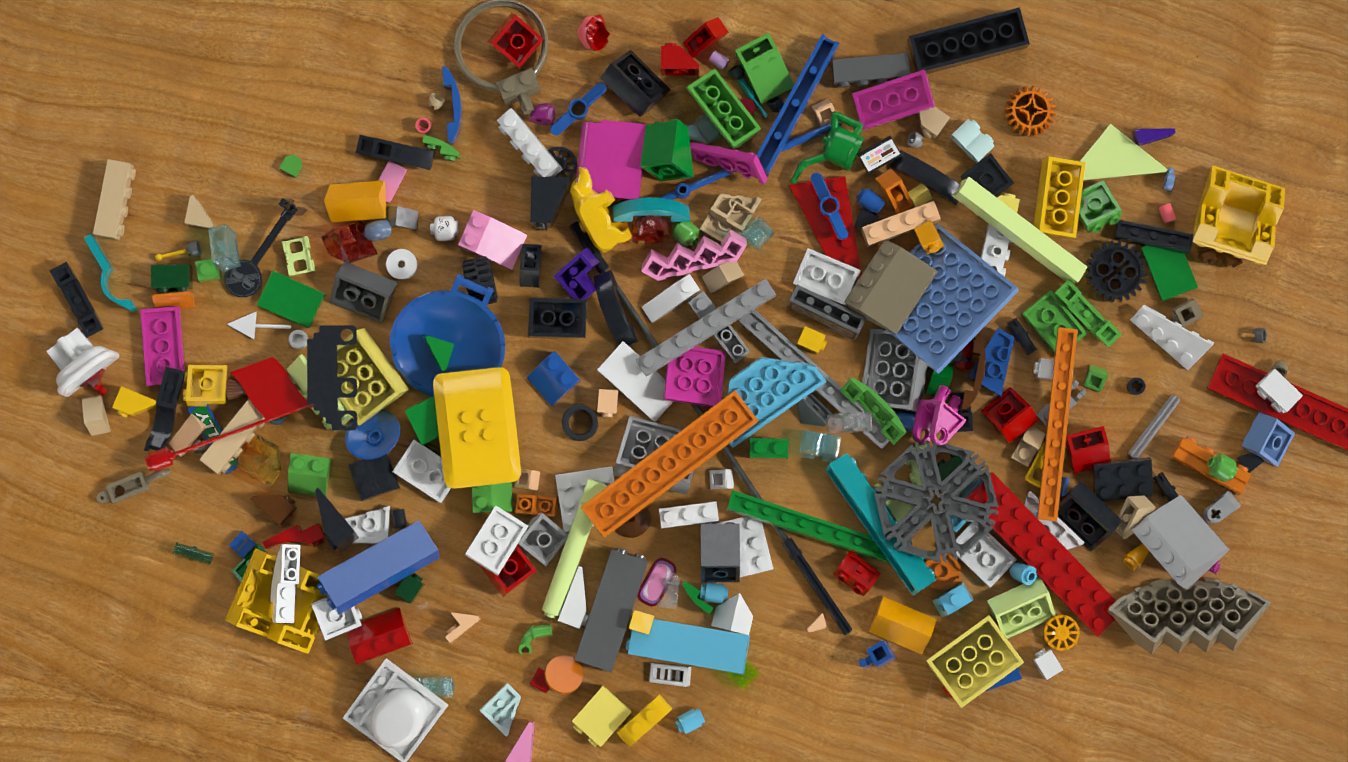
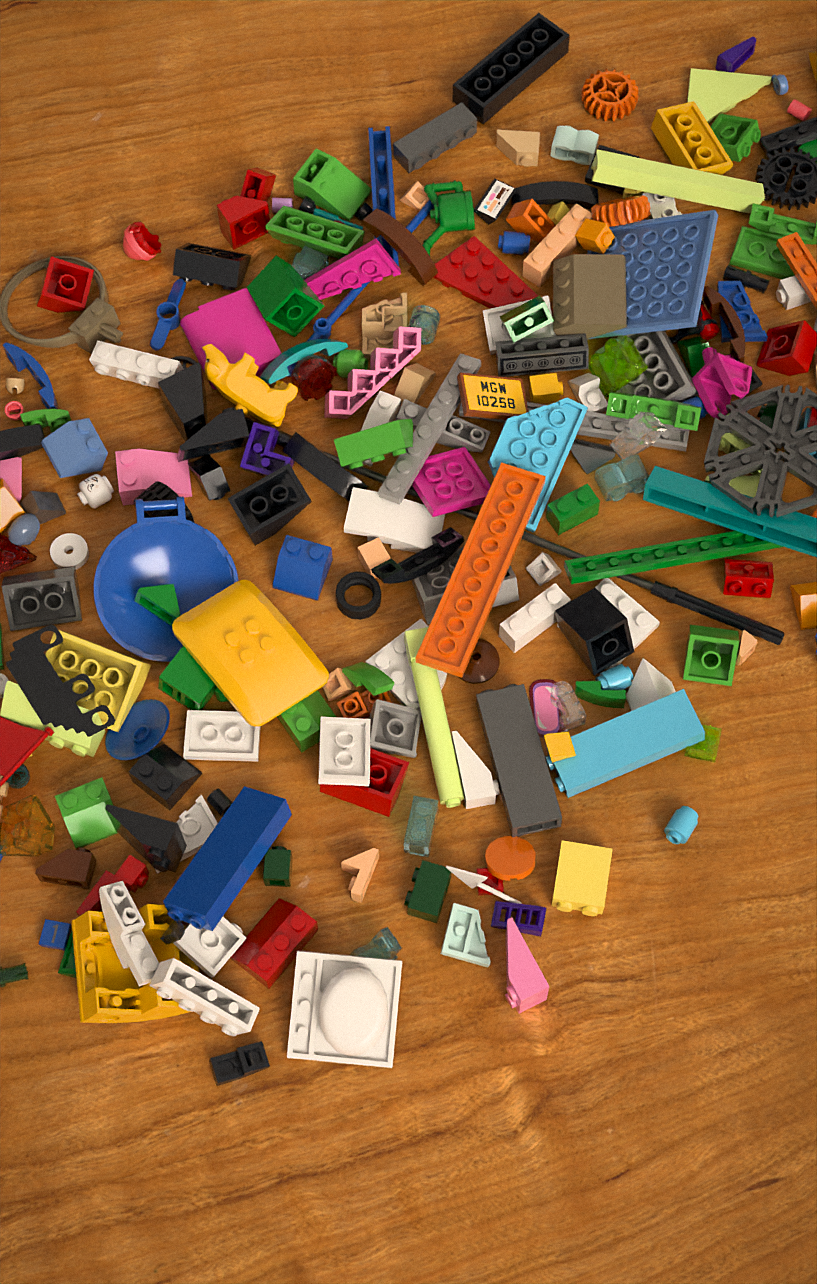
camera: 30 degrees left, 20 degrees down
(311, 655) = (204, 997): none -> white brick
(311, 702) = (239, 1064): none -> black slope
(314, 598) = (173, 933): none -> clear smoke tile
(447, 187) = (75, 449): none -> medium blue slope
(497, 665) = (428, 892): none -> dark green brick
(519, 617) = (421, 826): none -> clear light blue brick
(532, 633) = (447, 836): bright green piece -> none
(536, 686) = (474, 880): none -> white piece
(543, 114) = (135, 338): magenta piece -> none
(549, 490) = (369, 676): none -> bright green slope
(551, 732) = (520, 908): none -> dark purple slope
(553, 243) = (221, 434): none -> black slope
(636, 425) = (443, 547): none -> black slope
(644, 720) = (632, 851): yellow brick -> none
(657, 318) = (375, 443): none -> bright green slope
(686, 675) = (629, 779): white slope -> none
(765, 330) = (491, 396): none -> tile
(780, 160) = (404, 243): none -> reddish brown slope
(791, 614) = (711, 655): none -> bright green slope
(824, 194) = (470, 255): blue piece -> none
(828, 283) = (526, 318): none -> green brick
(842, 360) = (588, 393): none -> white slope
(865, 218) = (517, 262): black tile -> none
(875, 354) = (617, 364): none -> clear neon green slope
(894, 100) = (476, 144): dark pink plate -> none
(914, 139) = (519, 172): light grey hinge -> none
(962, 228) = (622, 210): none -> orange gear

